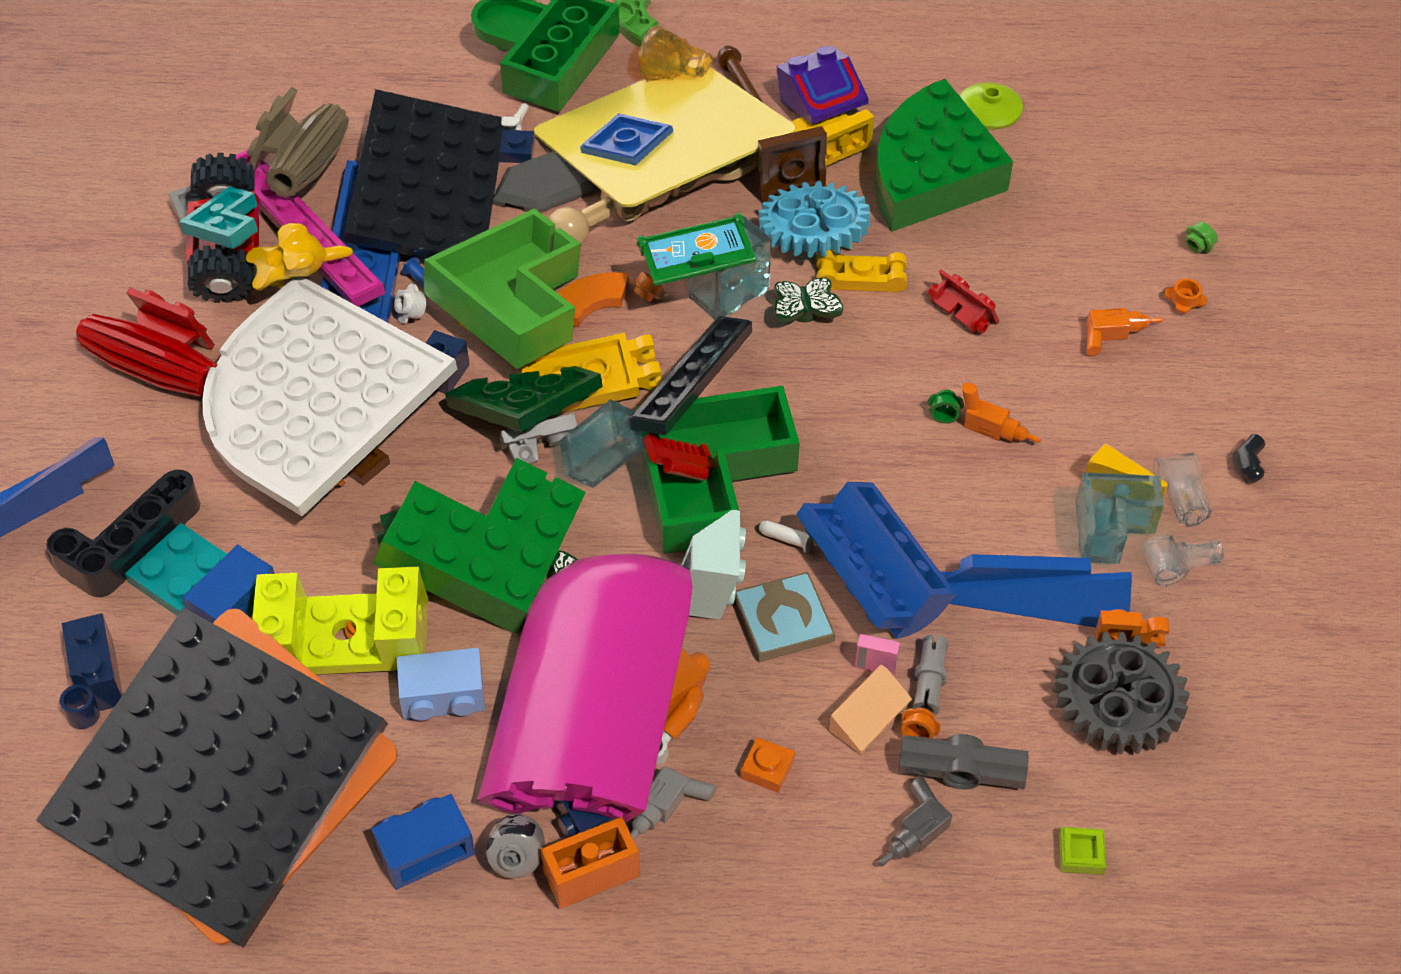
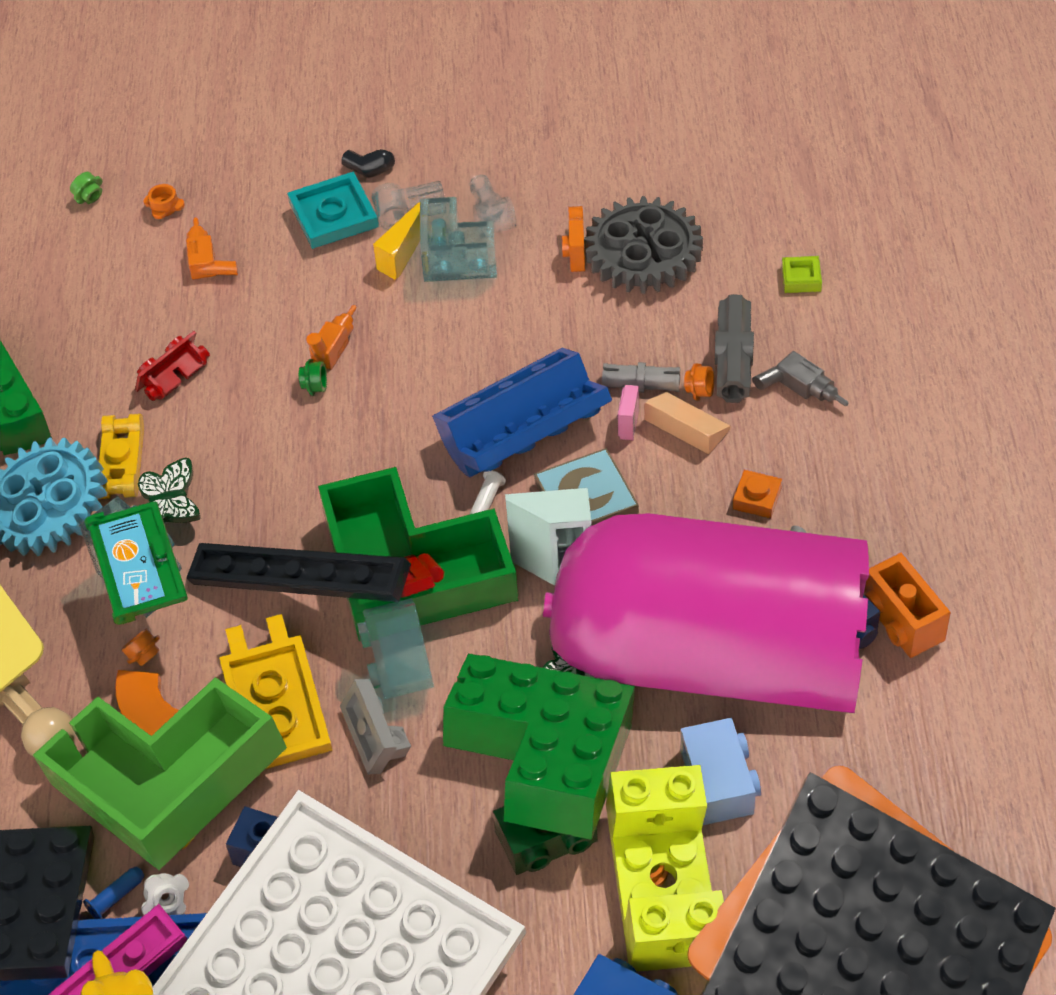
camera: 90 degrees left, 0 degrees up
(423, 840) = (905, 757): blue piece -> none
(515, 846) = (899, 671): light grey head -> none
(525, 397) = (330, 732): dark green plate -> none
(1039, 587) = (537, 295): blue wedge -> none
(1173, 423) = (333, 210): none -> teal plate

